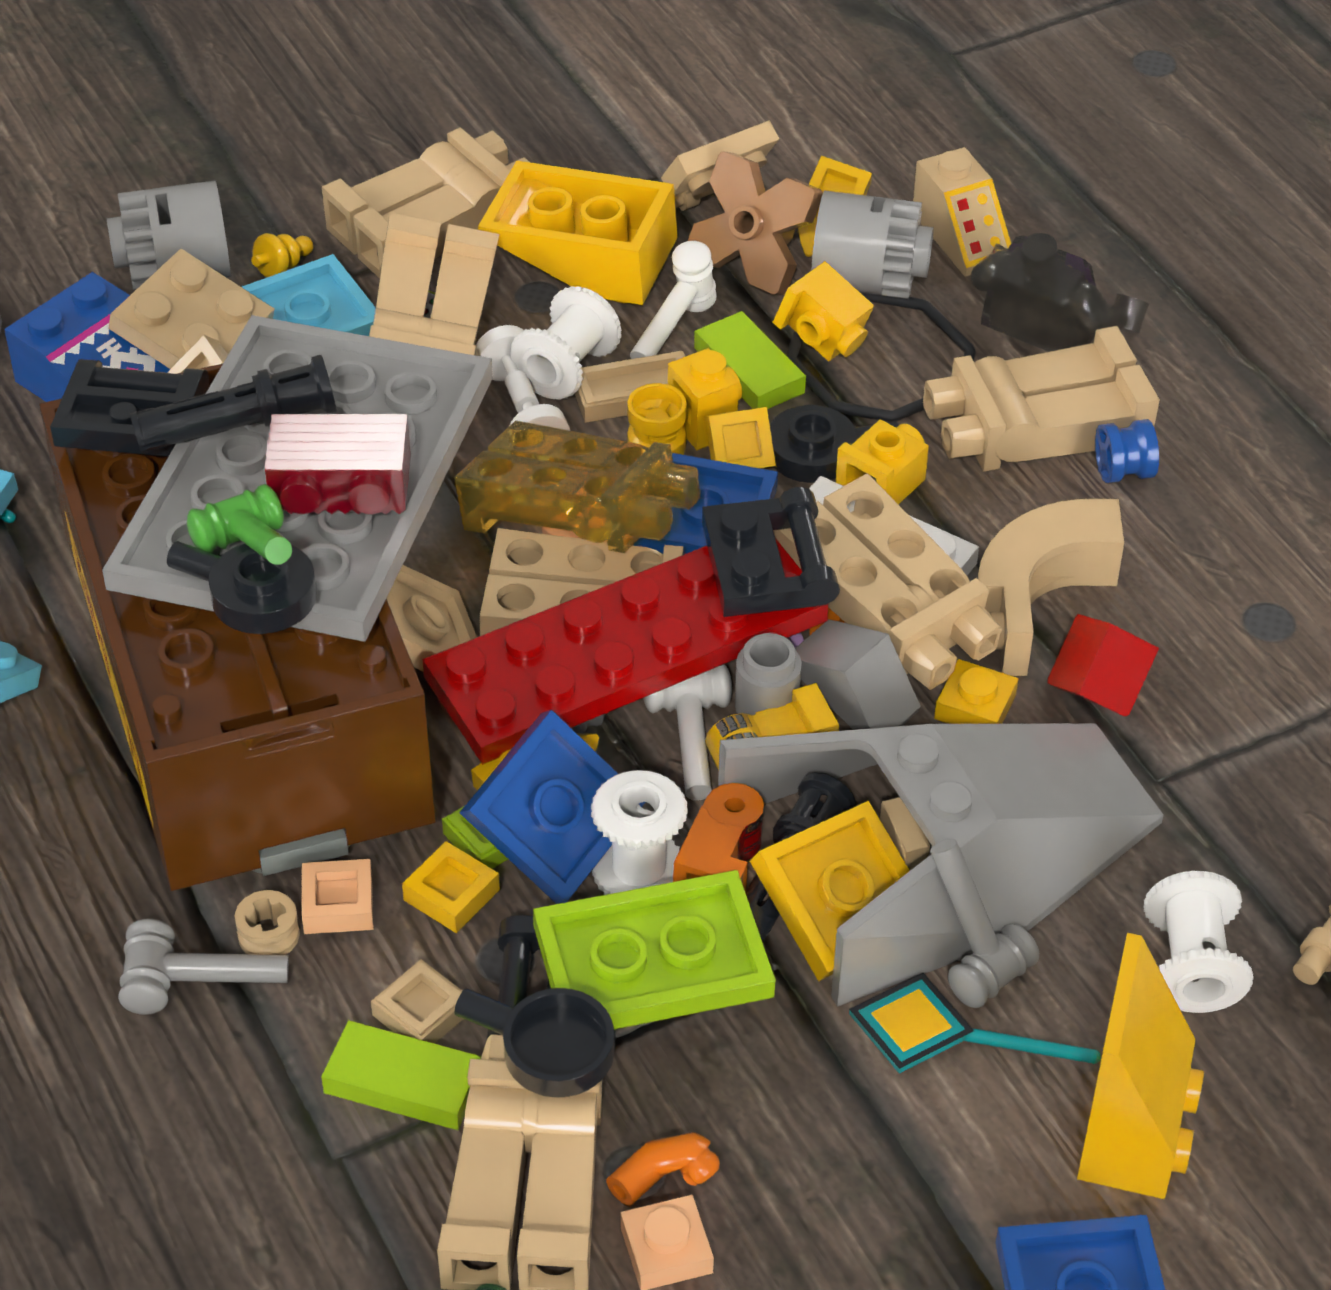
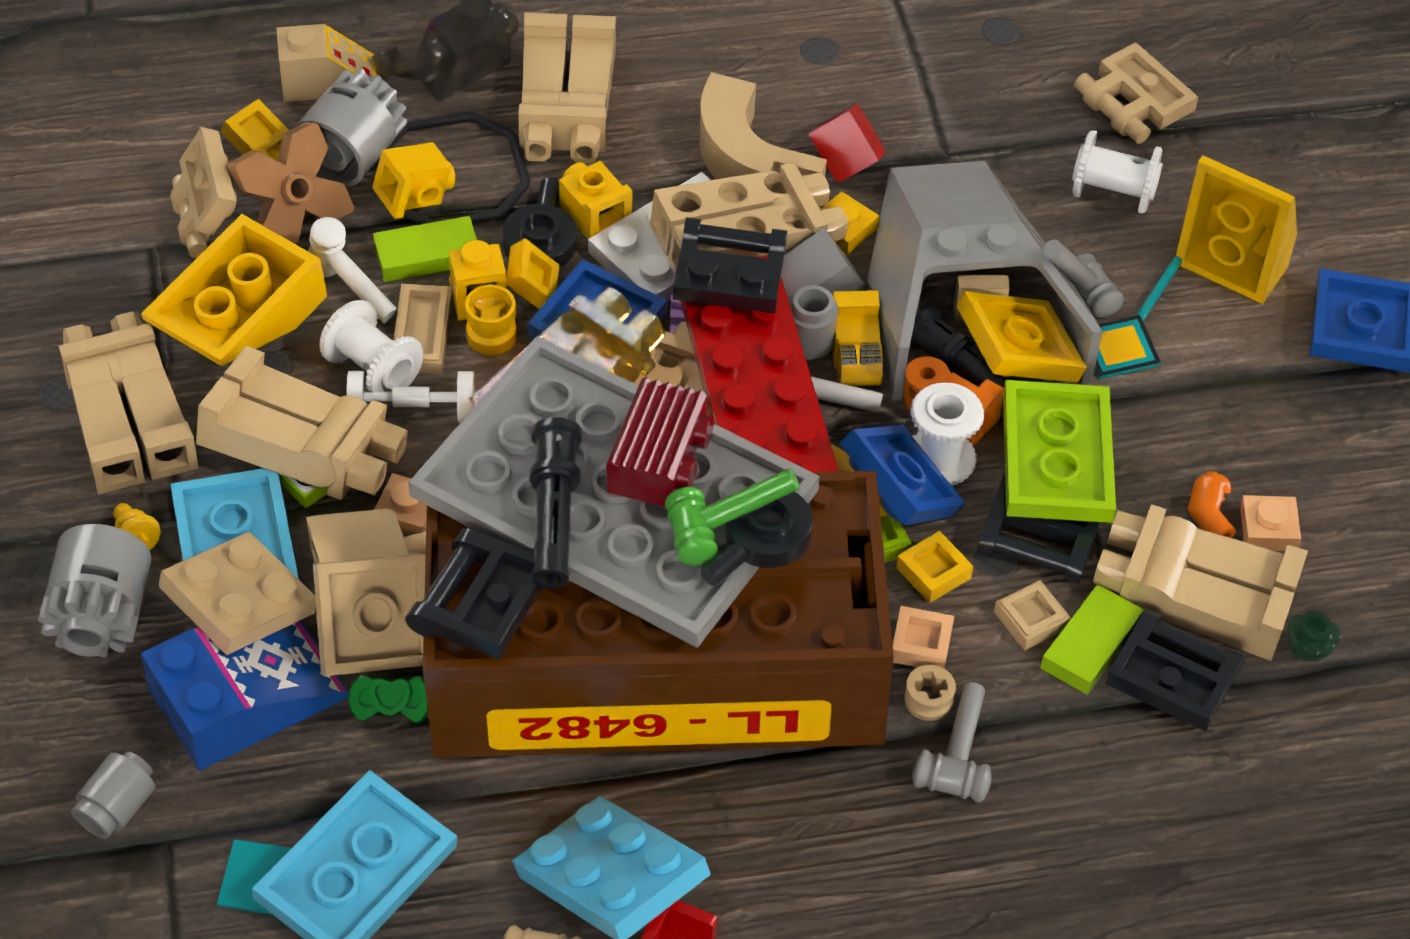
camera: 75 degrees left, 5 degrees up
(352, 1159) = (1170, 679): none -> black plate
(552, 1040) = (1136, 515): black piece -> none
(1127, 450) = (639, 59): blue wheel -> none

